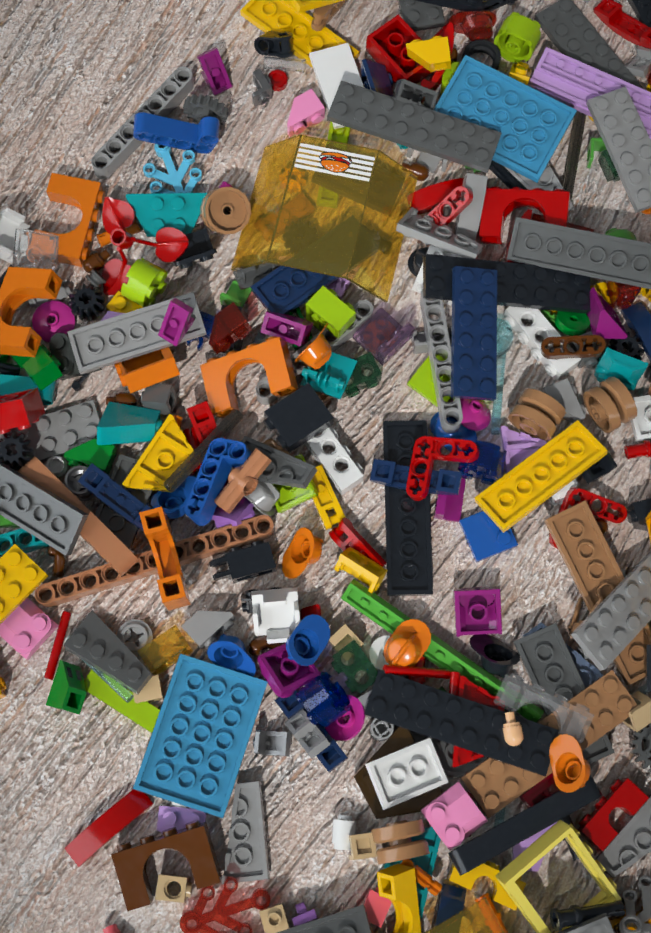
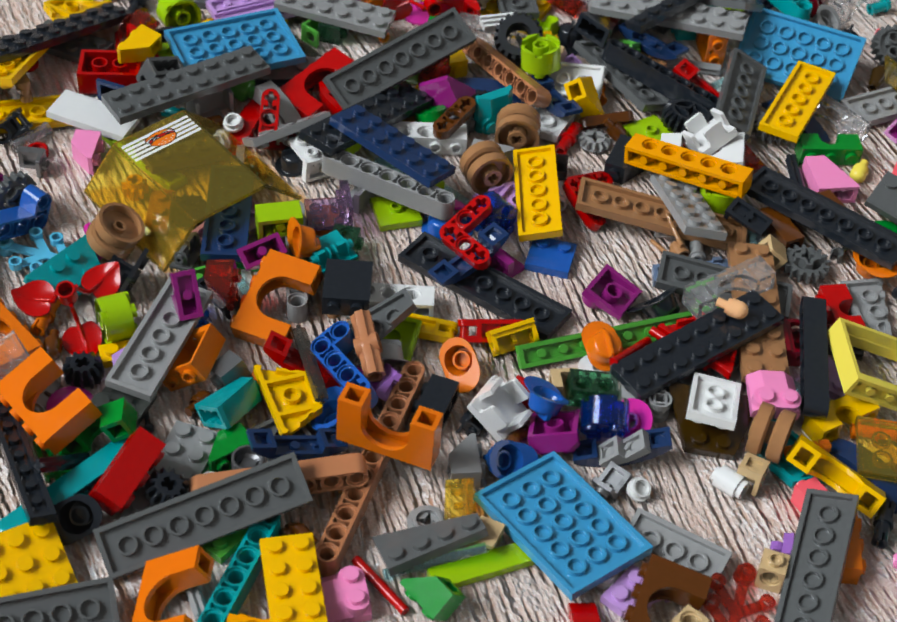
camera: 55 degrees left, 30 degrees down
(96, 279) = (68, 348): dark grey bush -> none
(283, 767) = (638, 489): none -> white plate
(421, 188) = (233, 122): none -> white plate
(568, 763) = (786, 291): orange piece -> none

